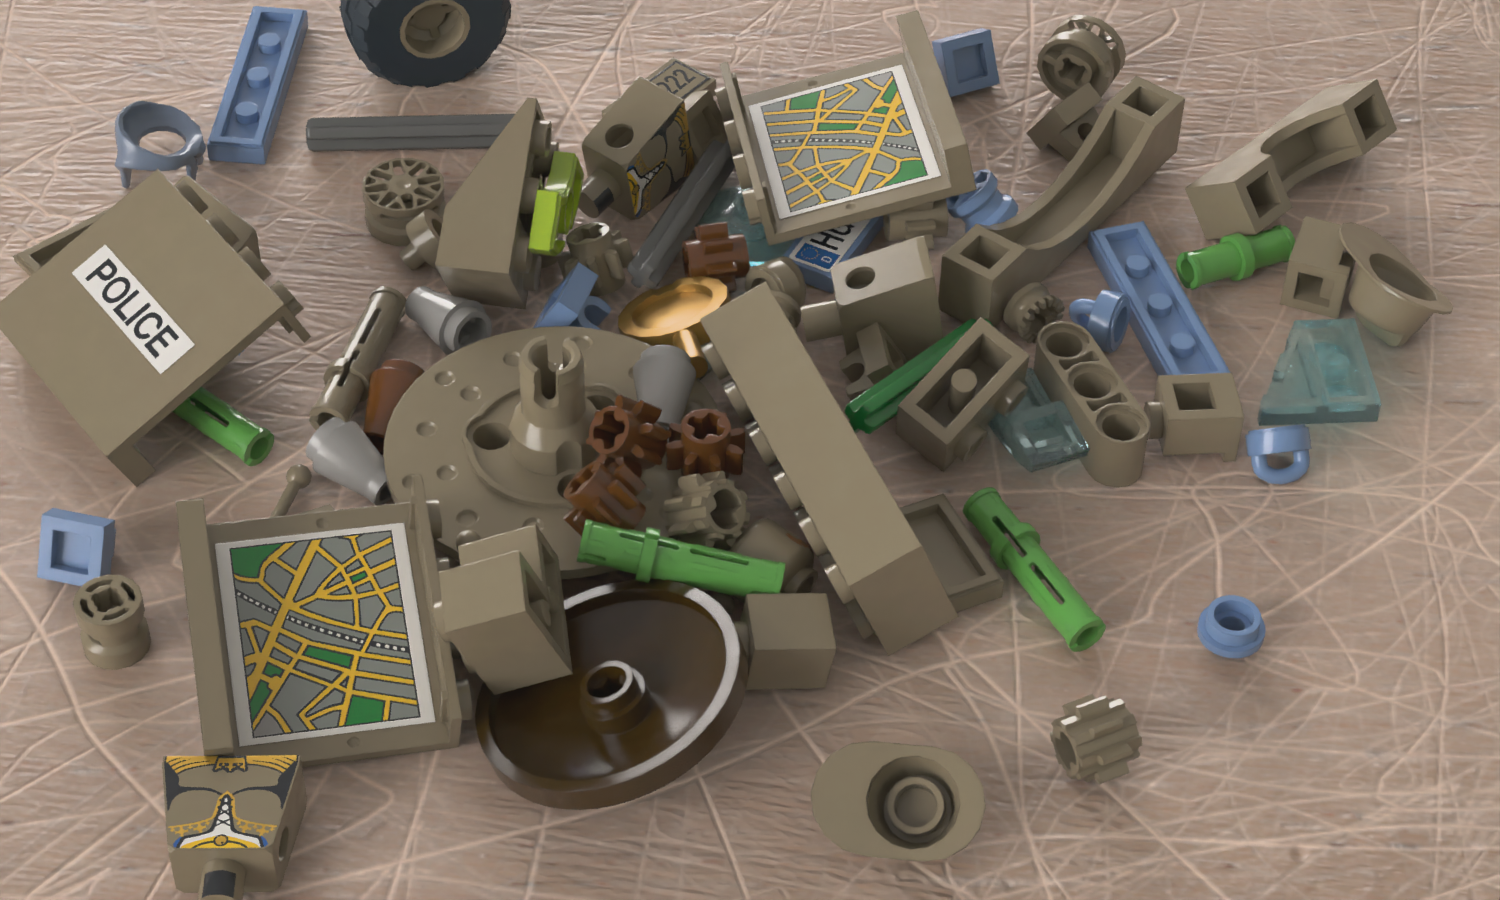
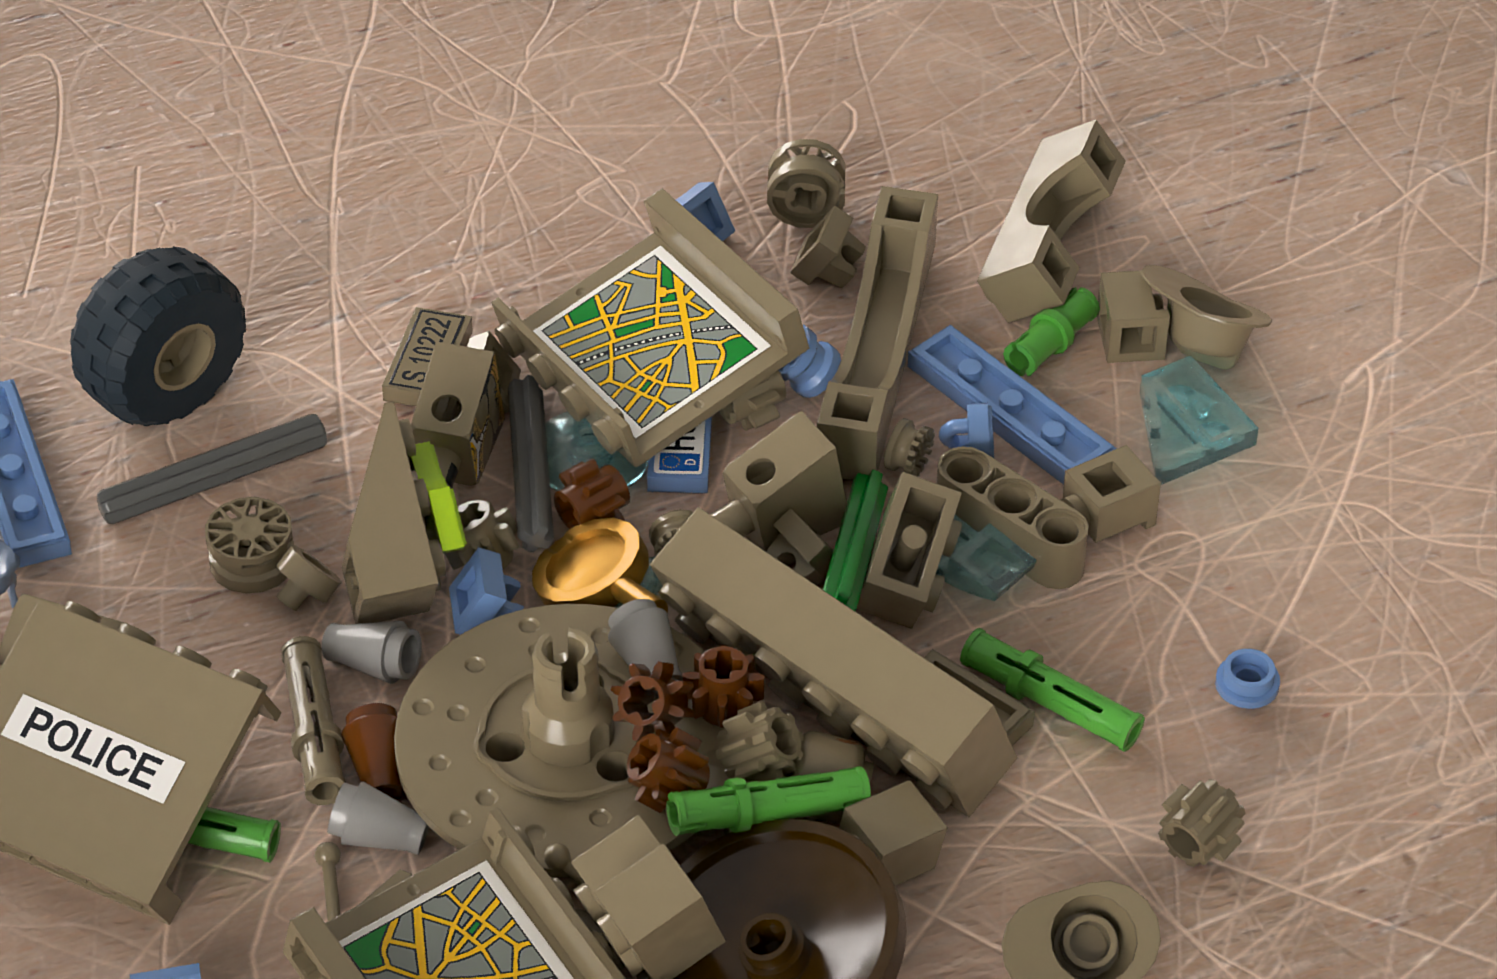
camera: 25 degrees left, 0 degrees up
(780, 275) = (657, 498): dark tan tile -> none
(1279, 440) = (1191, 494): medium blue tile -> none

